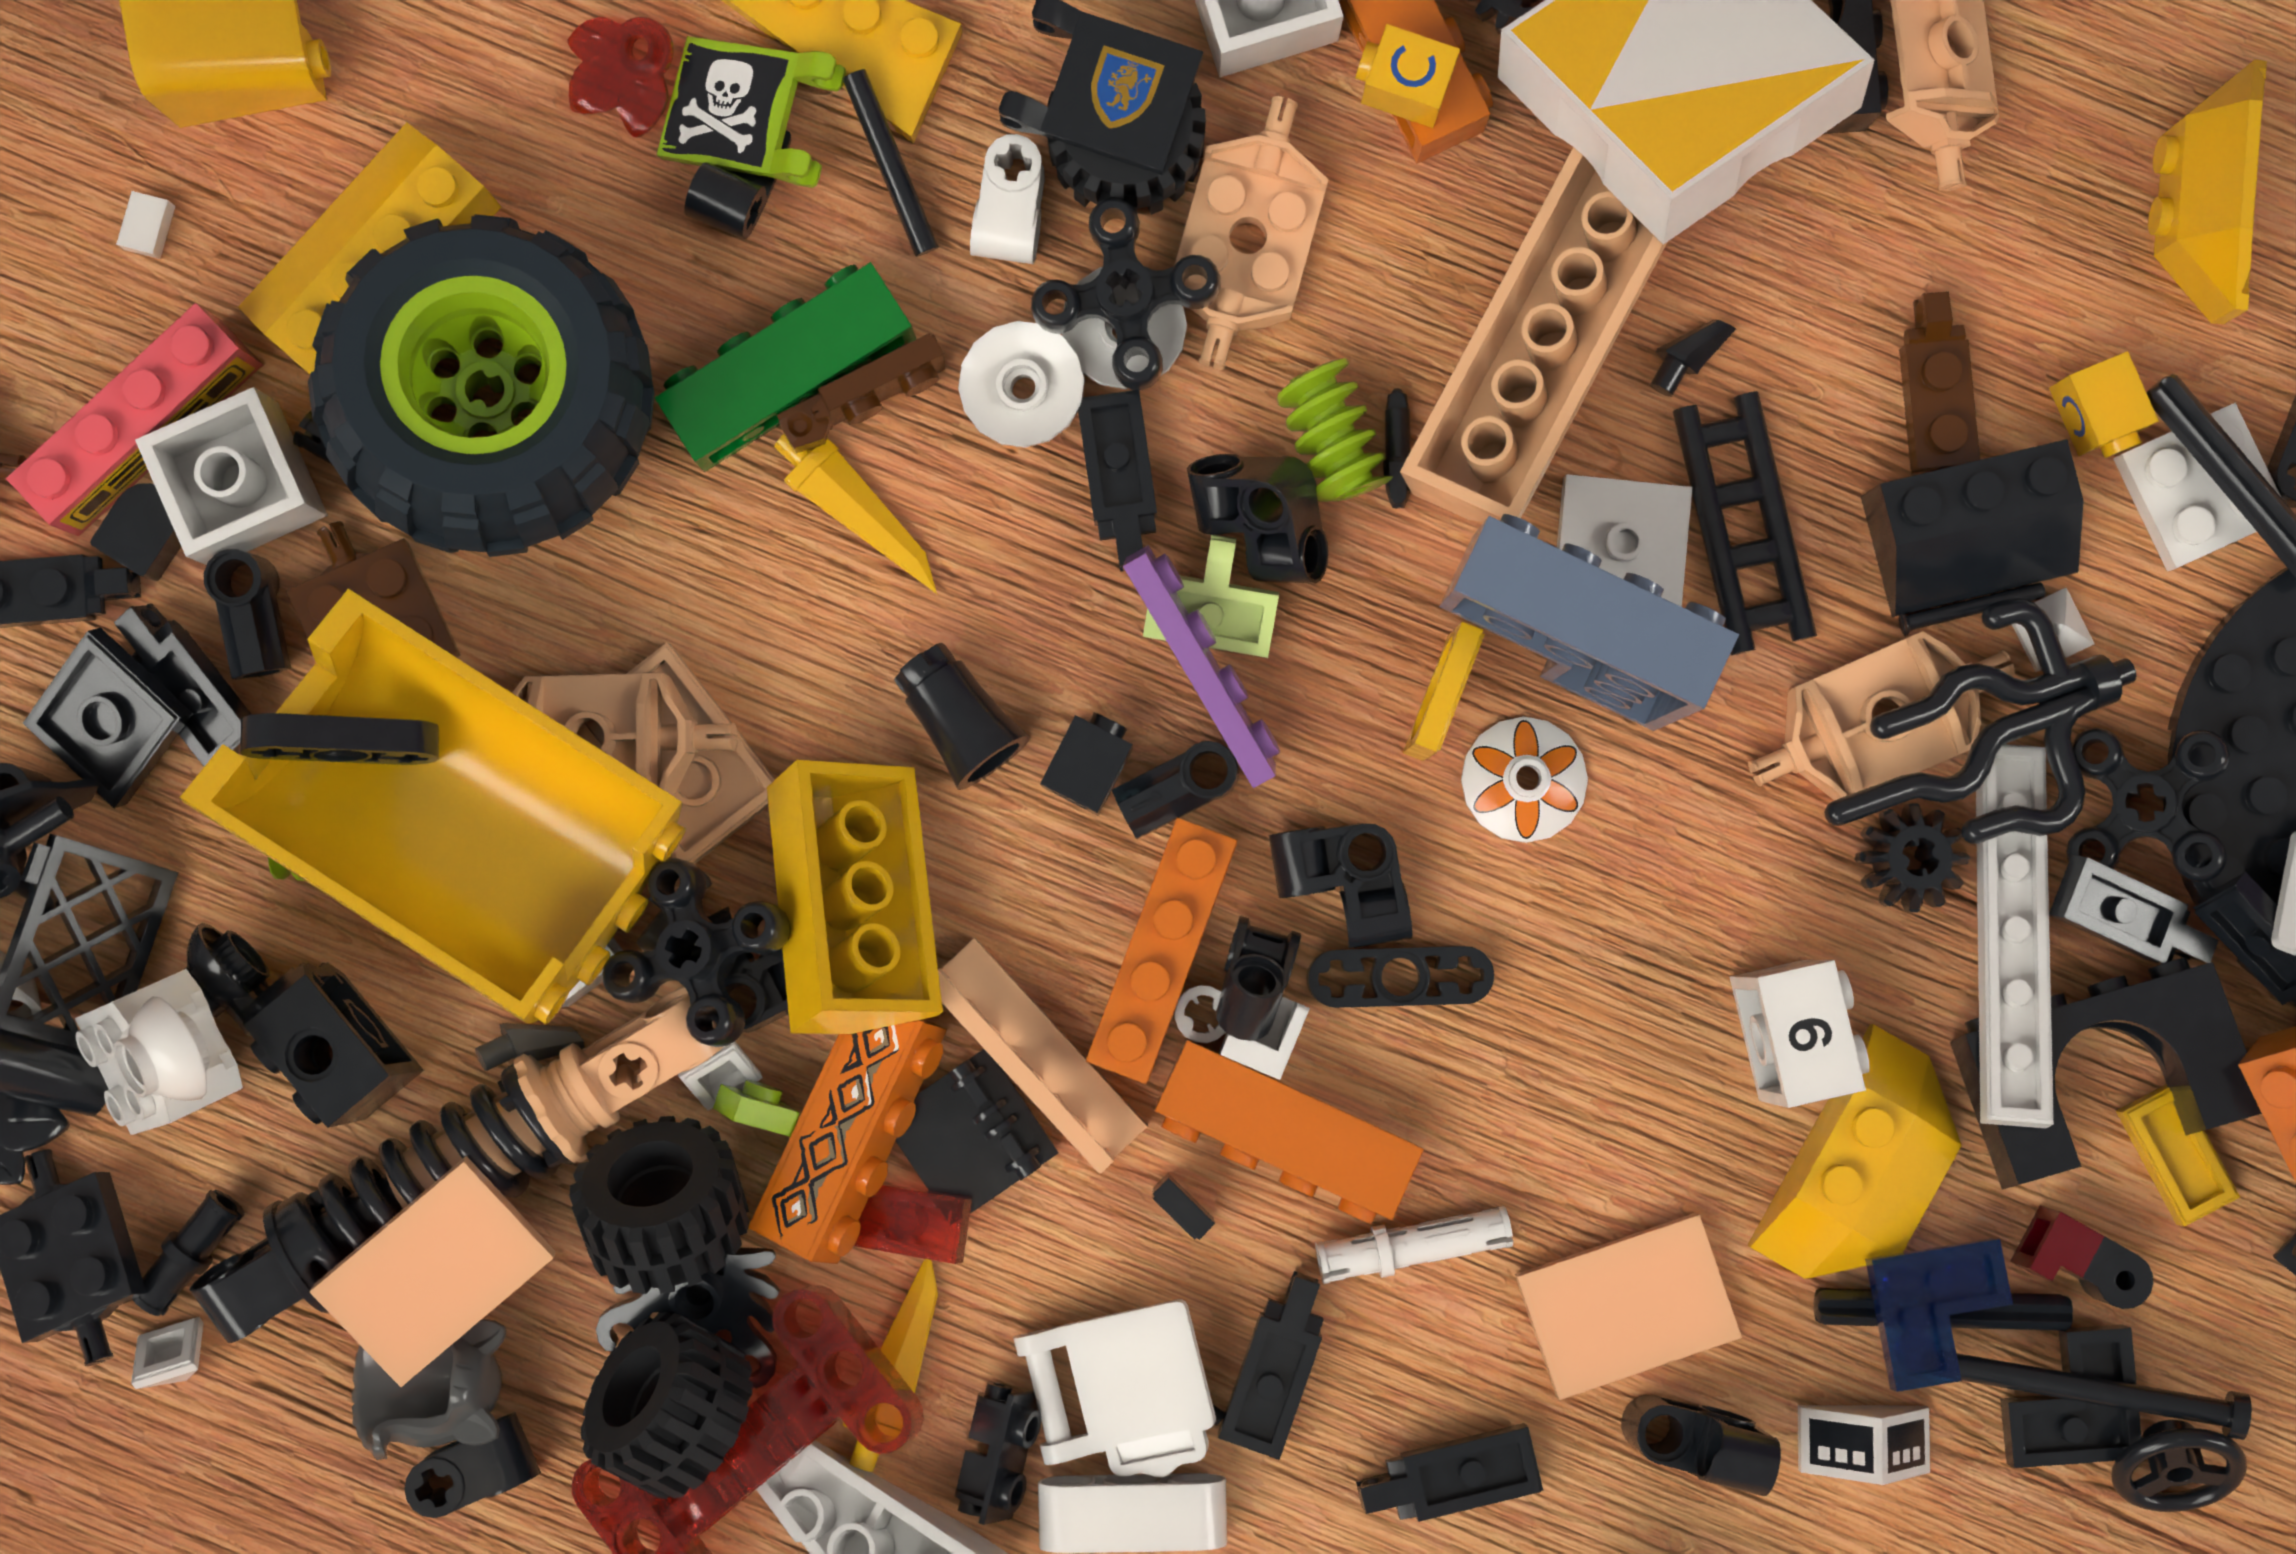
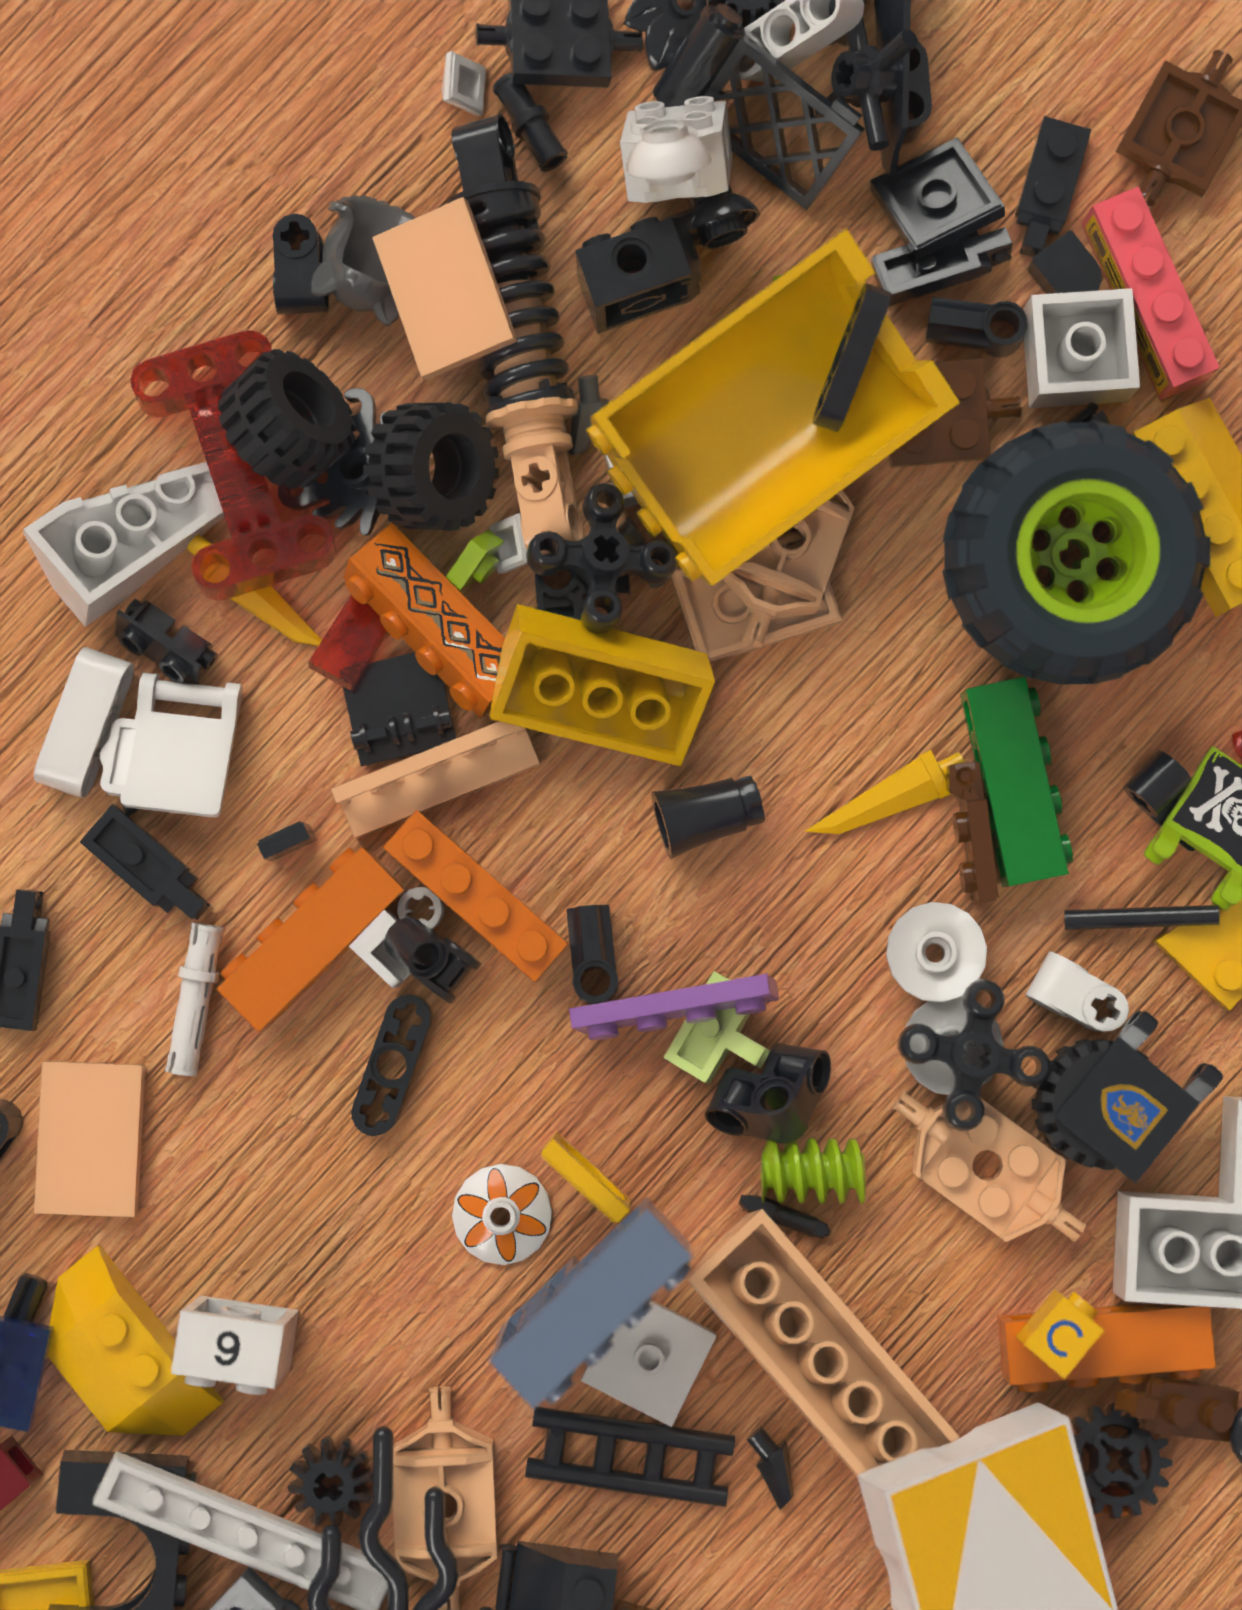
camera: 120 degrees right, 0 degrees up
(1088, 762) = (635, 895): black brick -> none
(1118, 469) = (845, 1000): black hinge -> none
(1319, 861) = (498, 1035): black piece -> none

